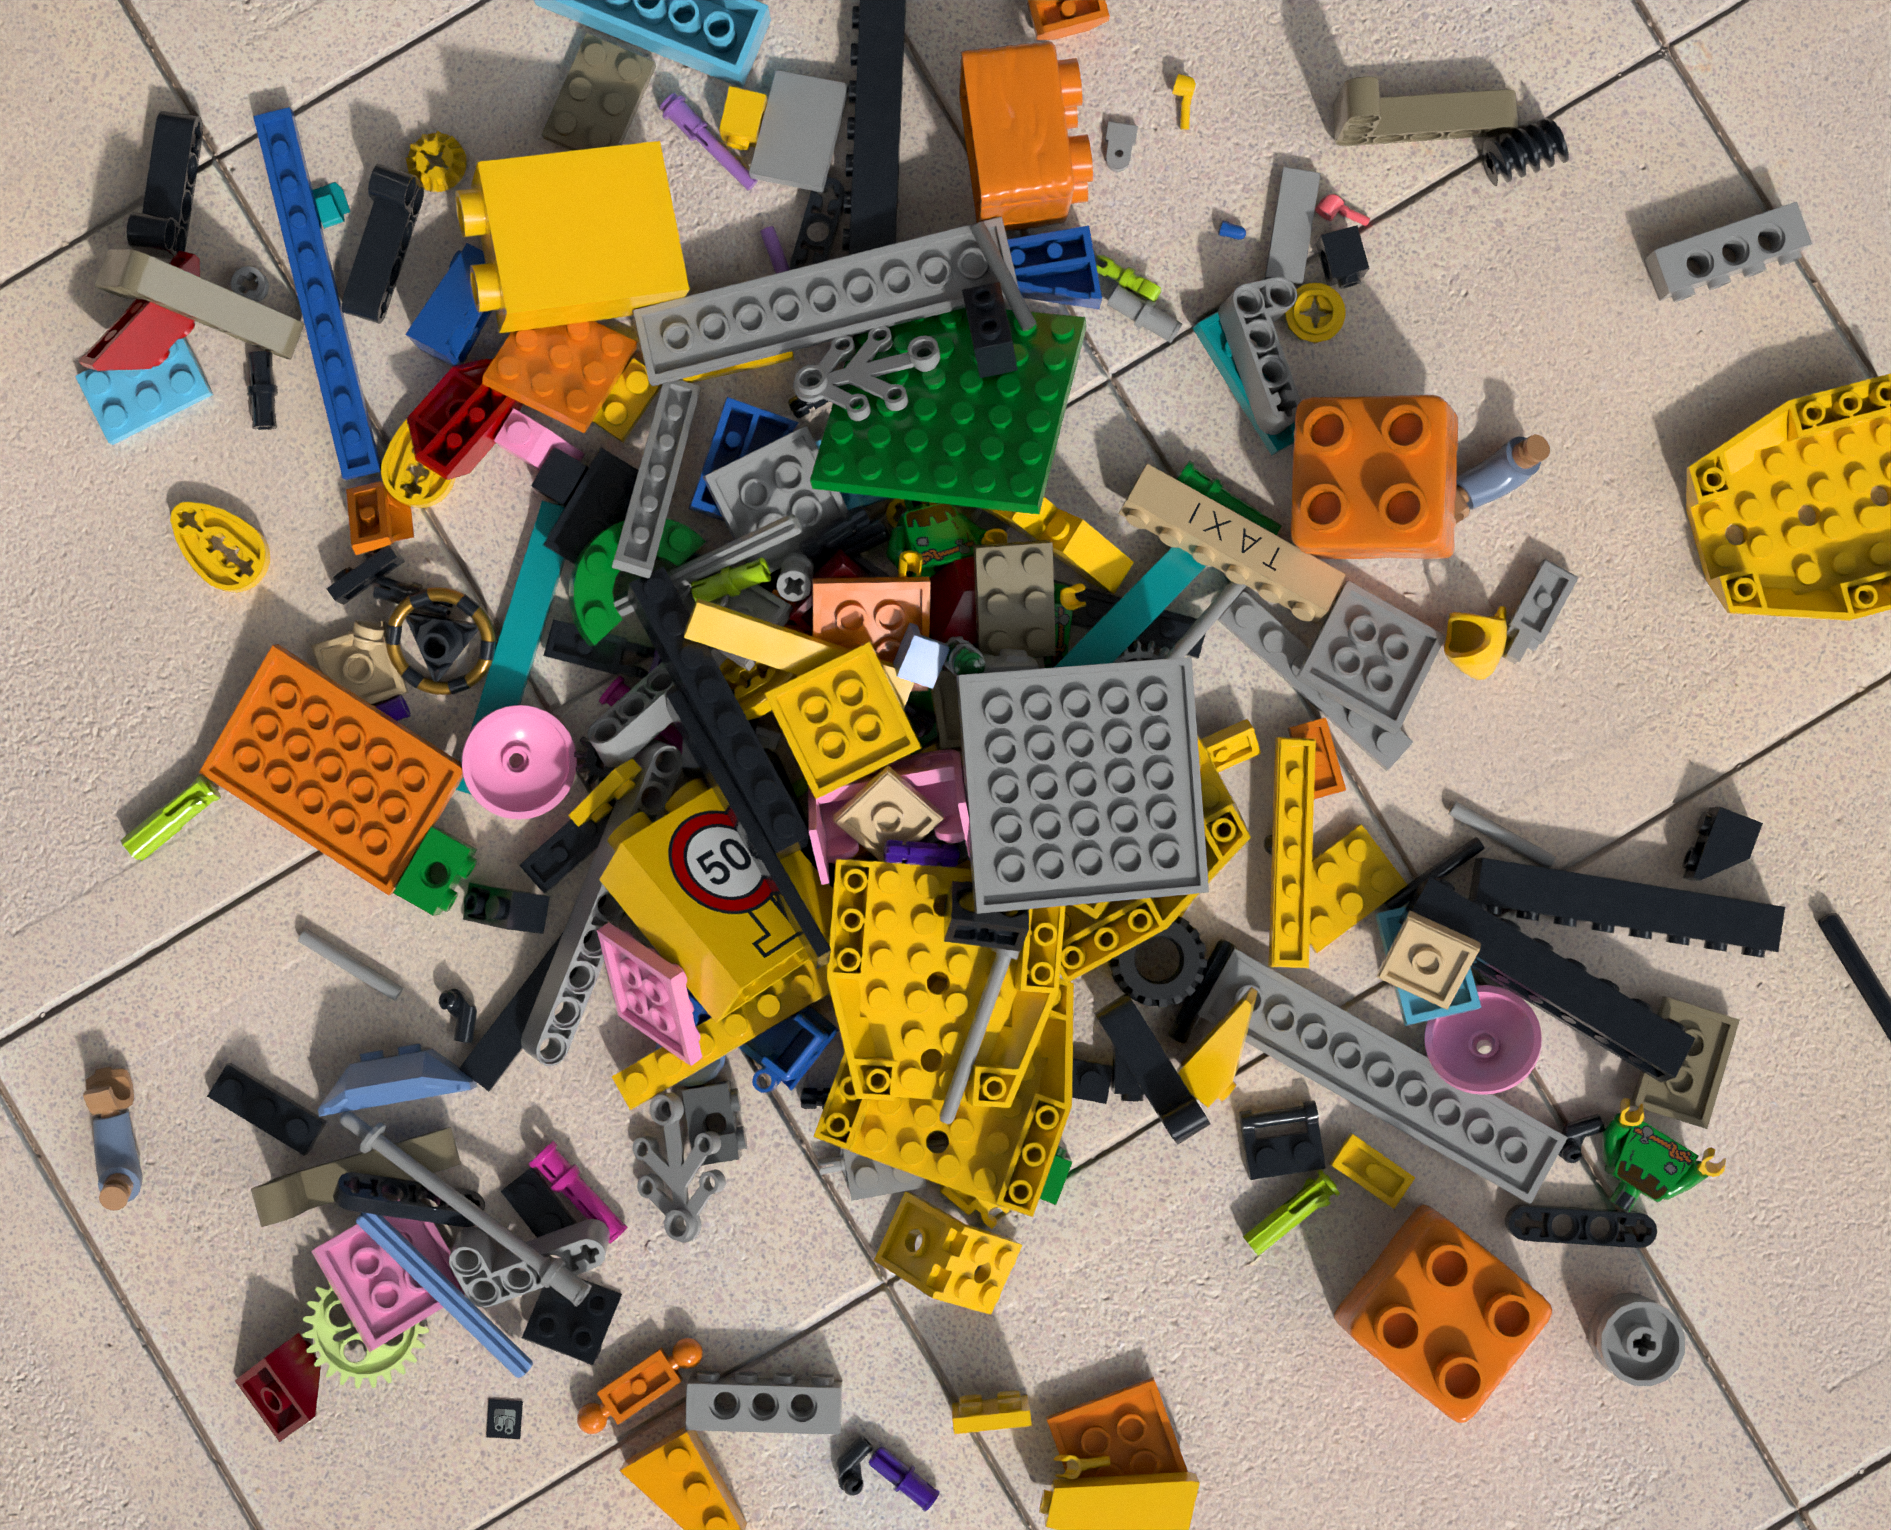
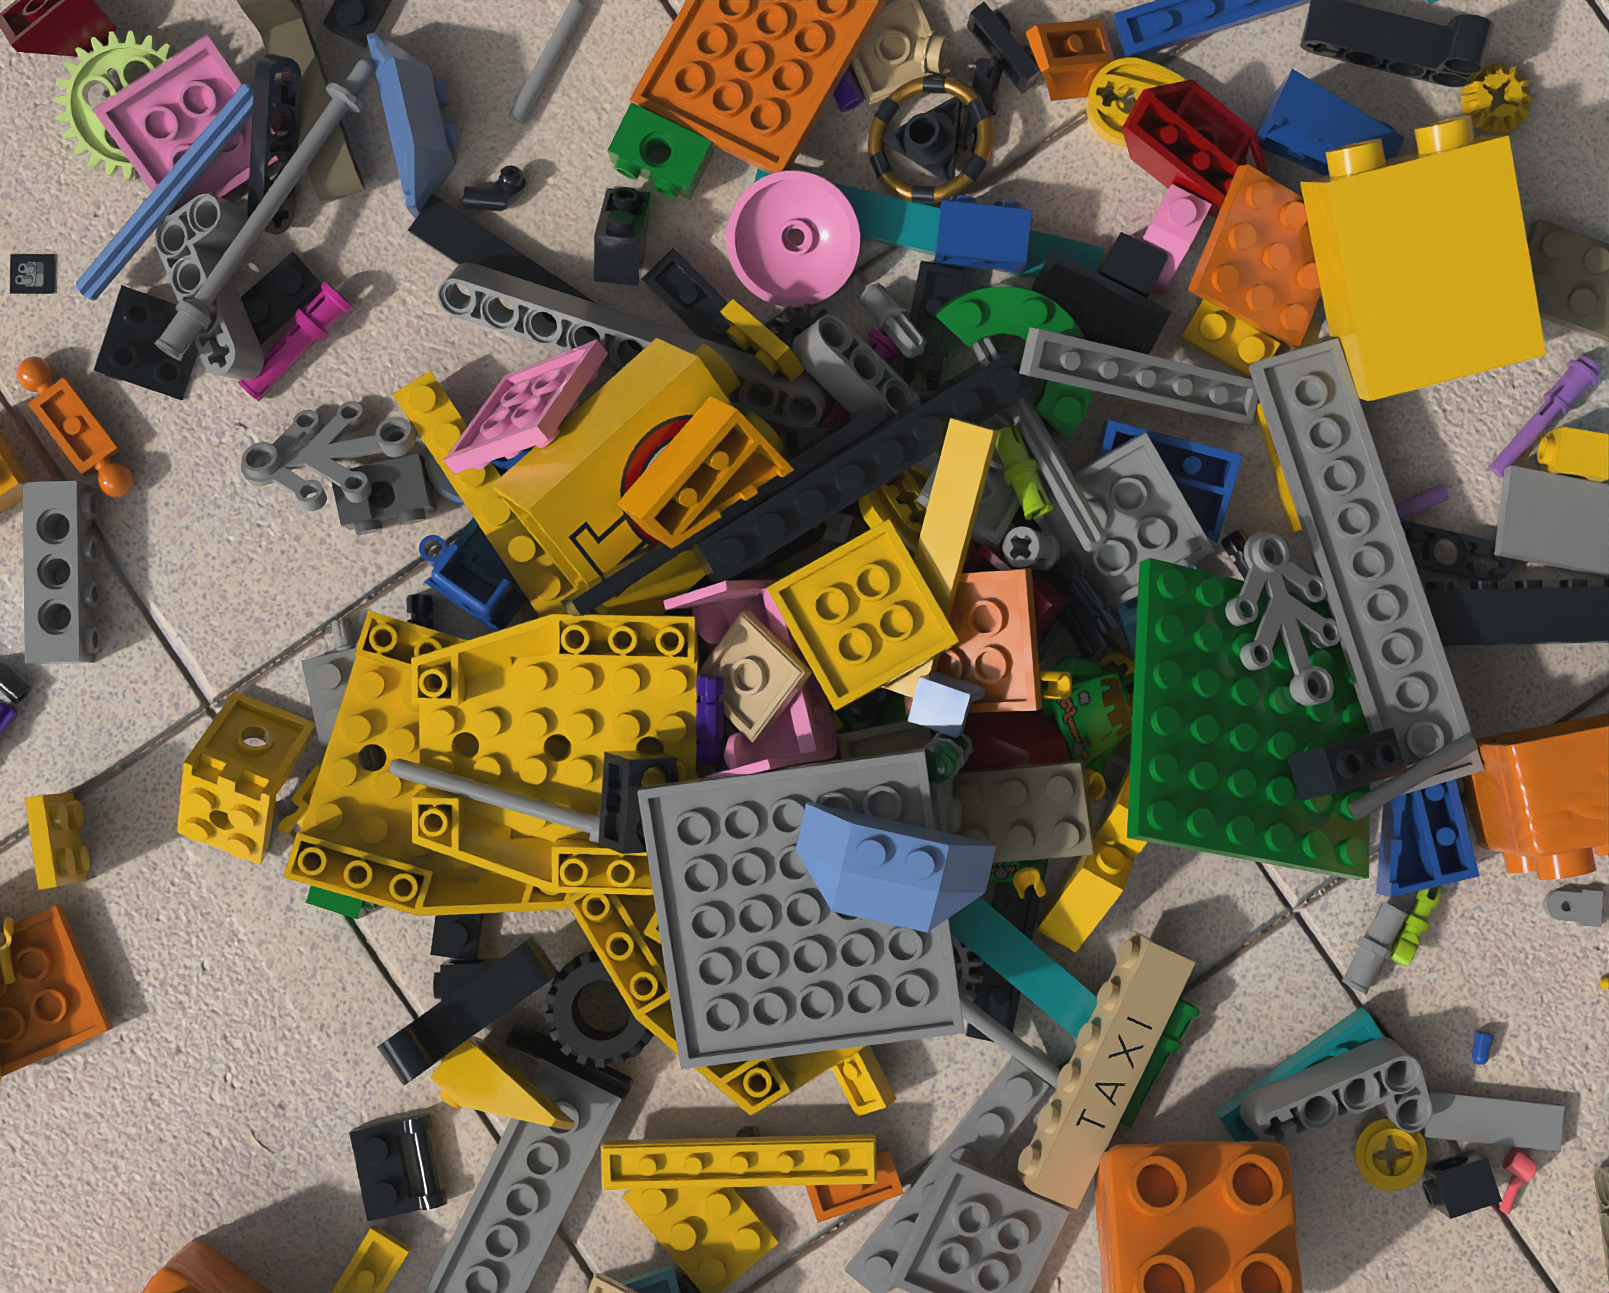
camera: 85 degrees right, 0 degrees up
(525, 602) = (982, 234): none -> blue brick
(594, 681) = (893, 320): none -> light grey axle
(718, 845) = (702, 473): none -> light orange wedge
(1052, 708) = (891, 867): none -> medium blue wedge
(1311, 1197) = (312, 1183): lime piece -> none

